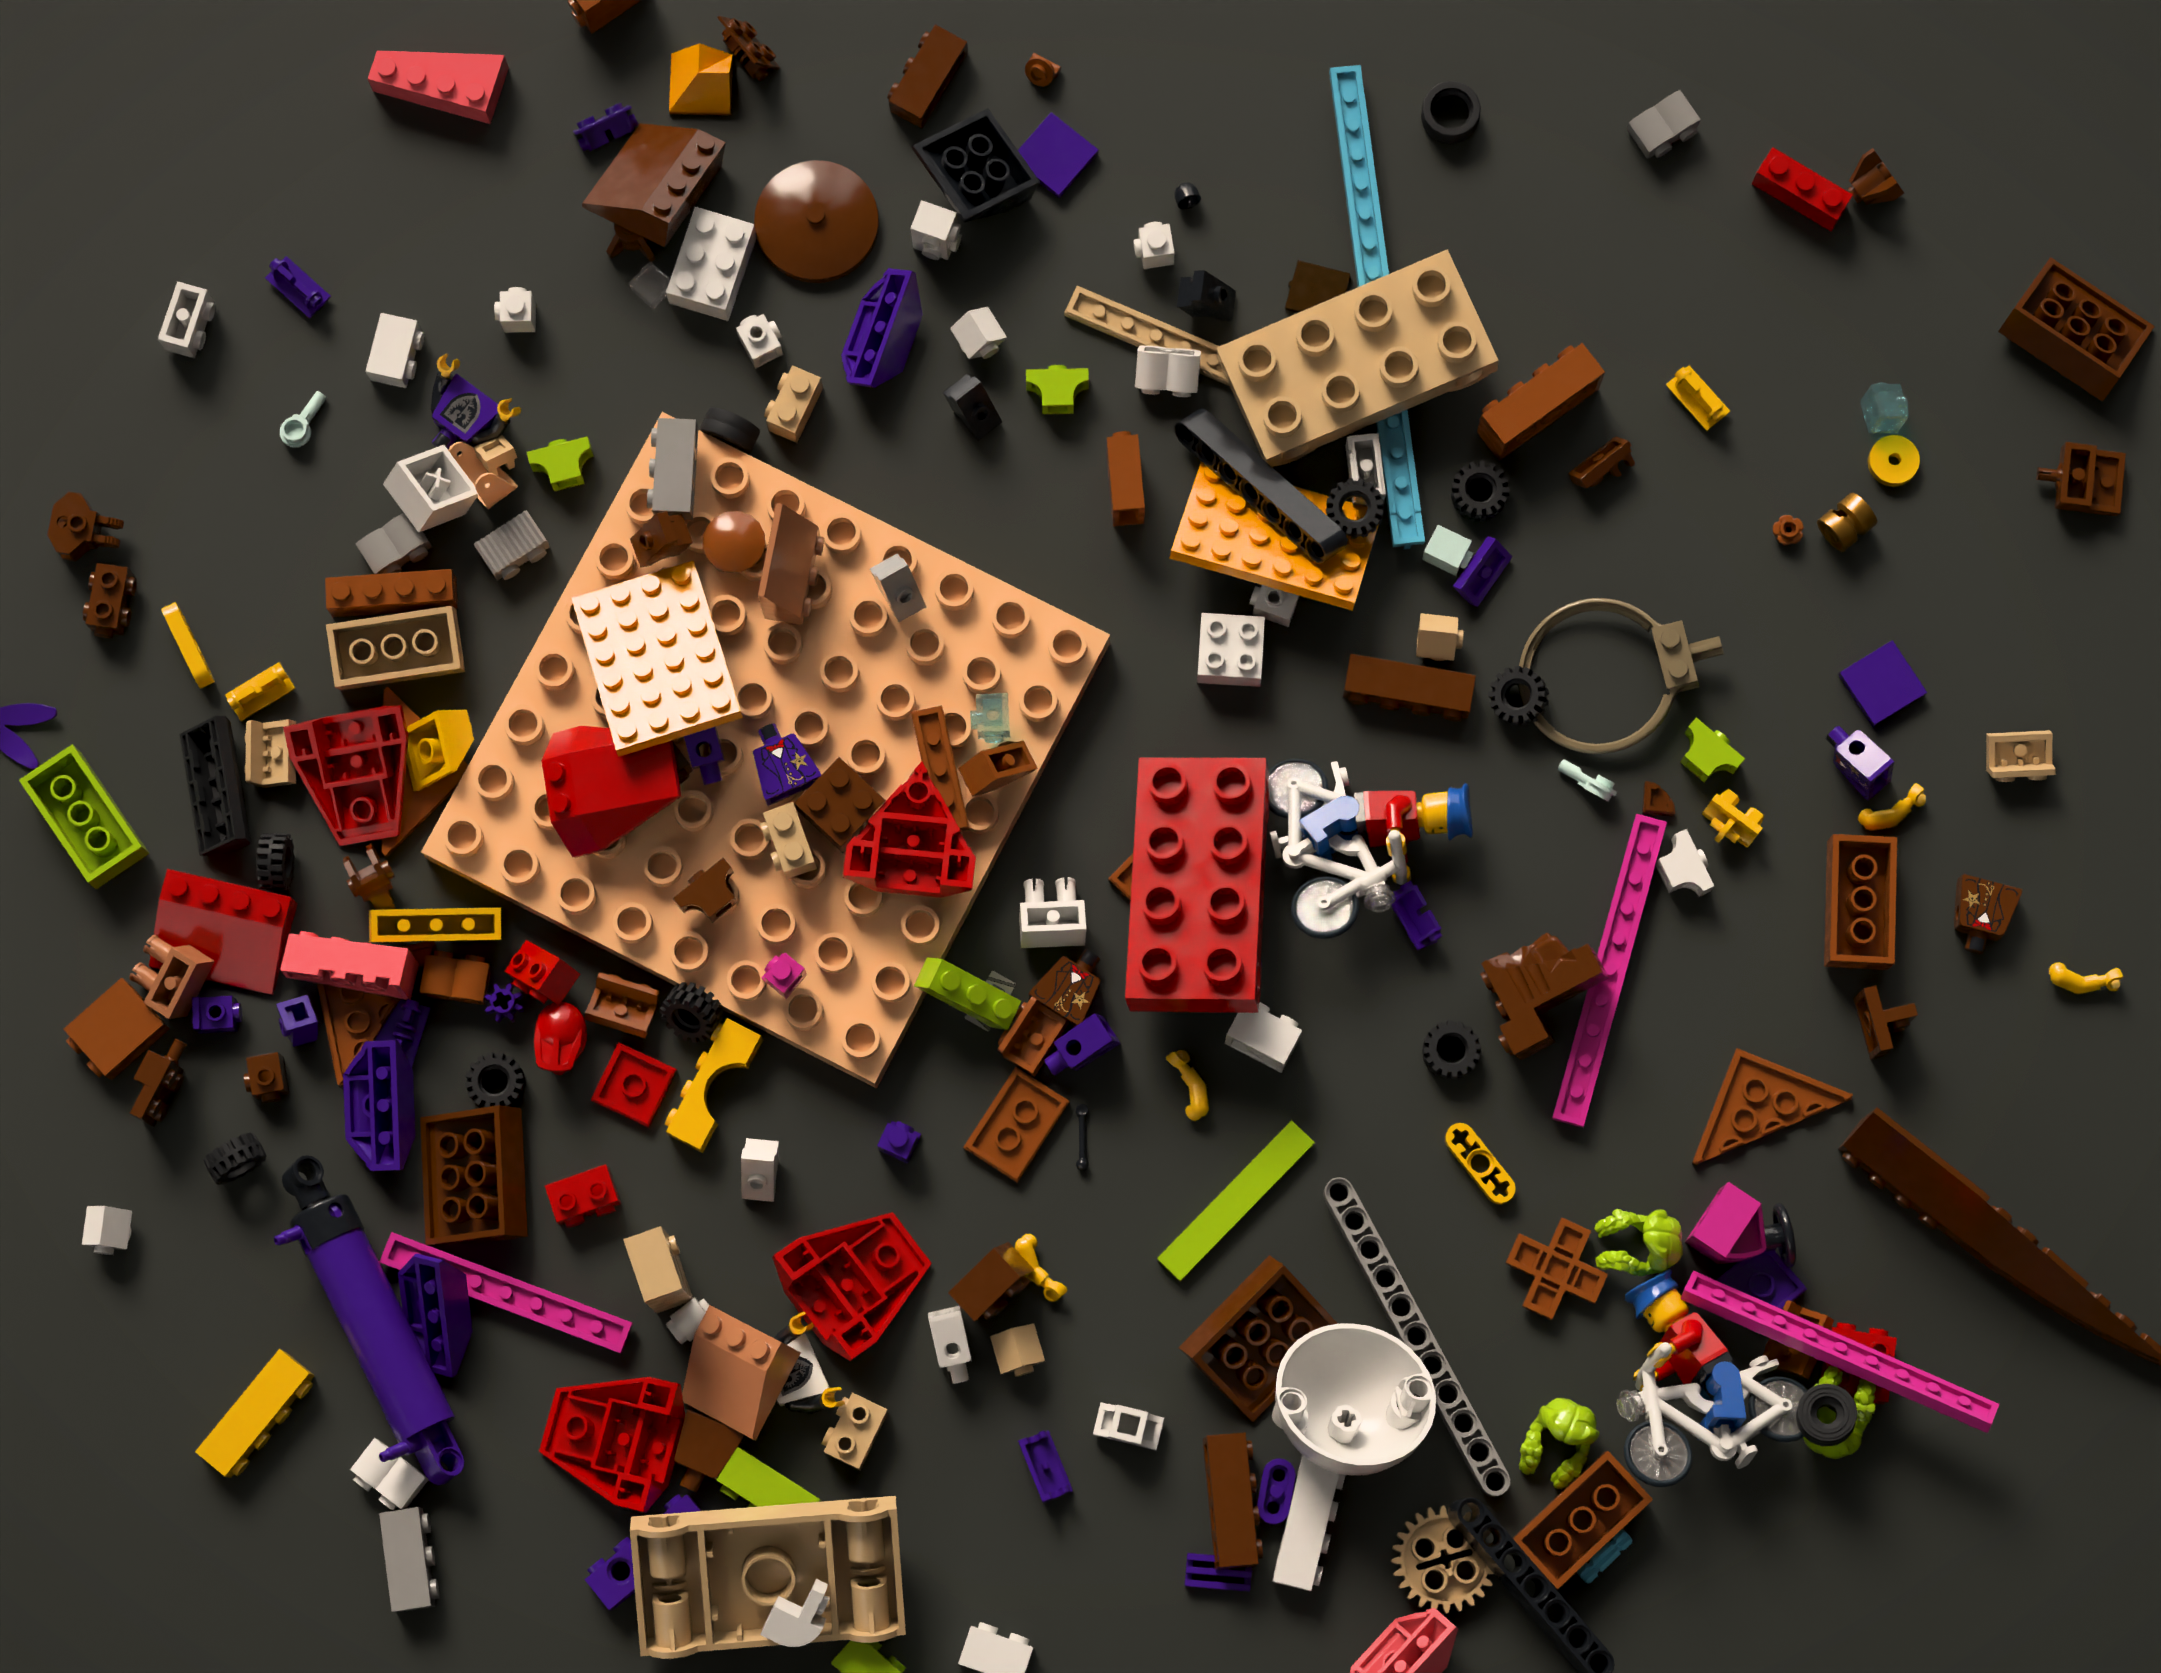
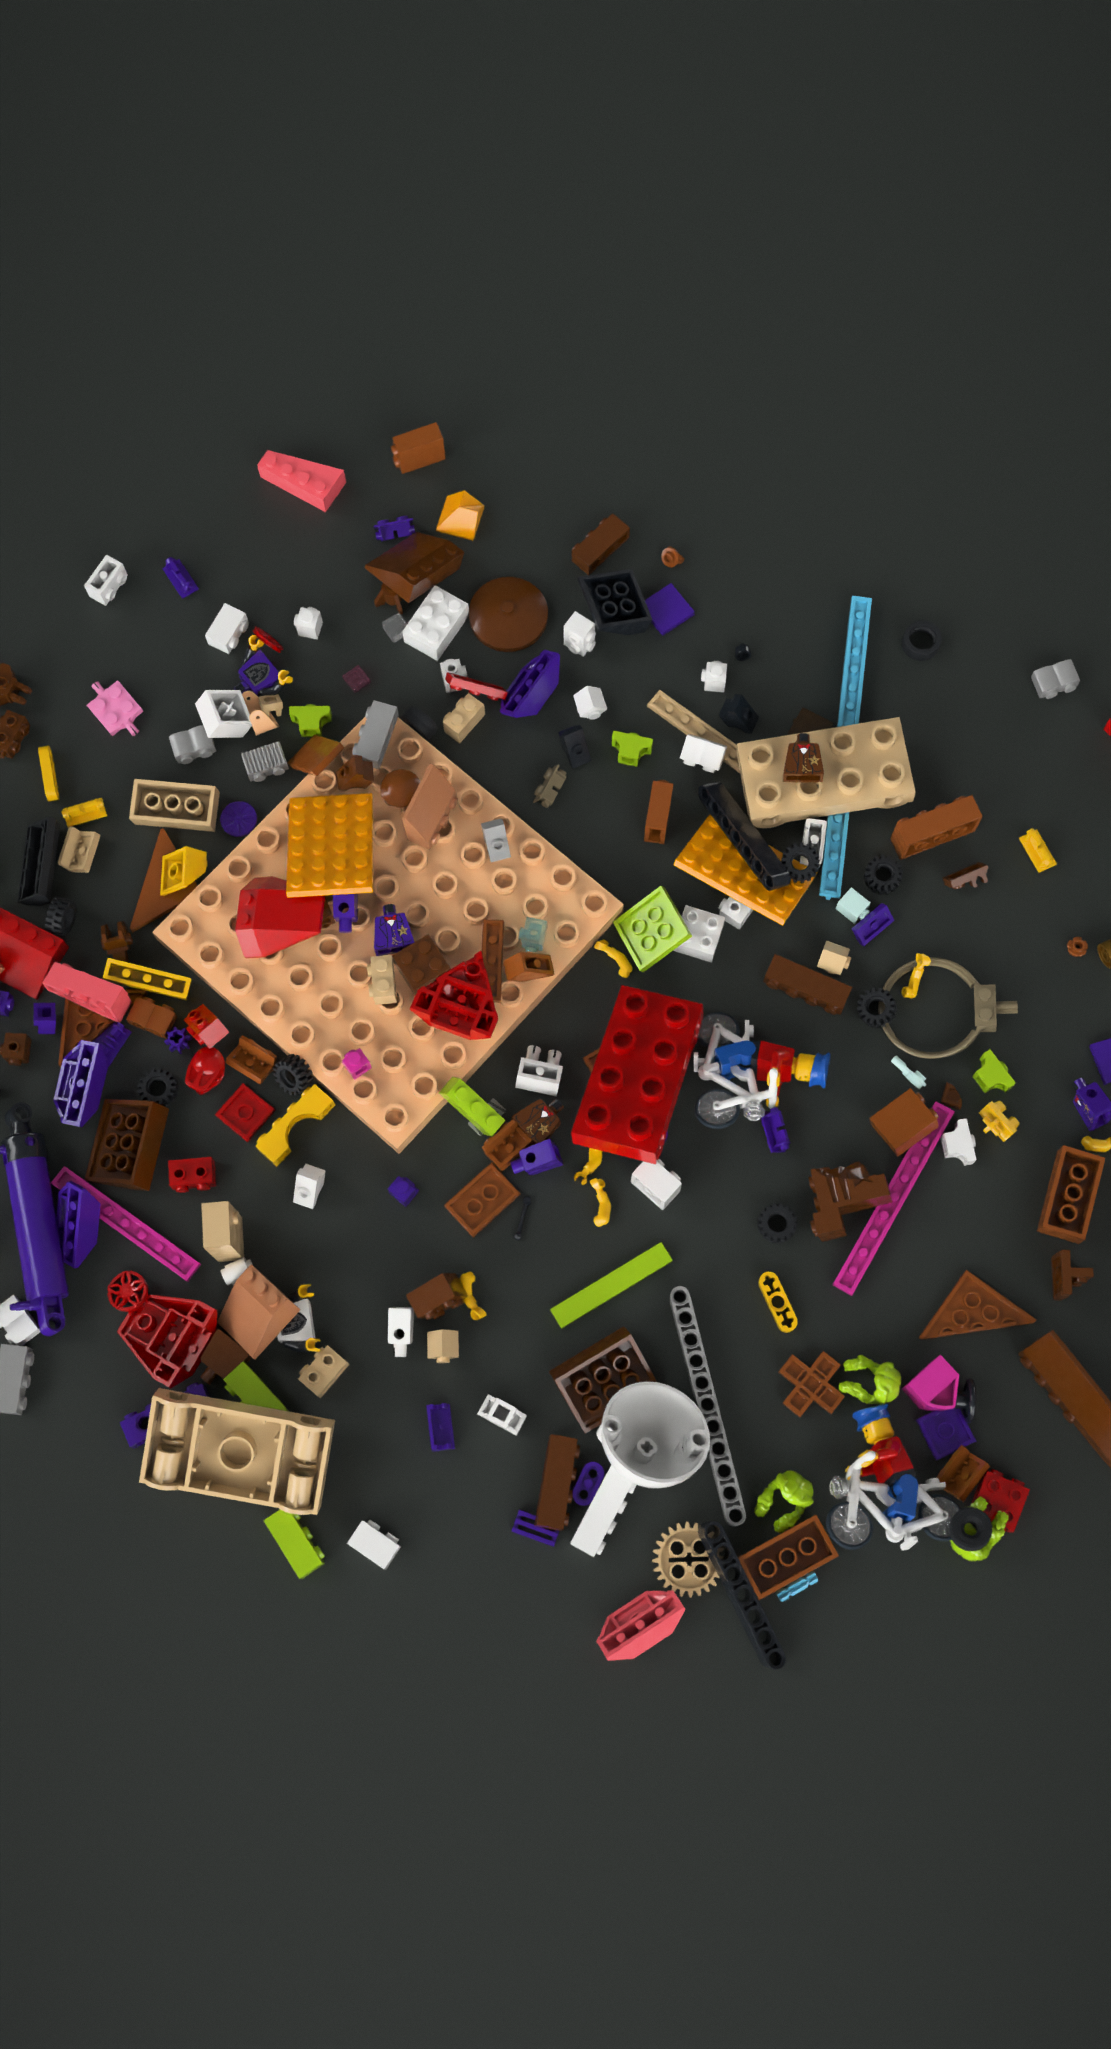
camera: 15 degrees right, 5 degrees down
(258, 517) = (115, 708): none -> bright pink plate
(296, 429) = (154, 661): light aqua plate -> none
(354, 770) = (126, 873): red wedge -> none
(390, 592) = (181, 770): dark orange brick -> none
(462, 354) = (267, 639): none -> red wheel
(496, 643) = (238, 819): none -> dark purple wheel
(538, 1389) = (127, 1291): none -> red wheel
(588, 519) = (315, 755): none -> dark orange tile
(613, 380) = (356, 679): none -> clear pink tile
(708, 892) = (323, 999): reddish brown brick -> none
(742, 42) = (492, 499): reddish brown hinge -> none
(797, 1625) = (243, 1487): white brick -> none
(801, 351) = (475, 686): none -> plate
(852, 1280) = (348, 1271): red wedge -> none
(952, 465) = (553, 778): none -> dark tan hinge
(1124, 714) = (619, 957): none -> yellow arm
(1161, 661) = (652, 929): none -> lime plate
(1164, 1028) = (594, 1162): none -> yellow arm
(1323, 356) = (803, 761): none -> reddish brown torso
(1563, 656) = (911, 990): none -> yellow arm
(1599, 855) = (905, 1121): none -> dark orange brick
(1840, 1351) = (990, 1489): dark pink plate -> none

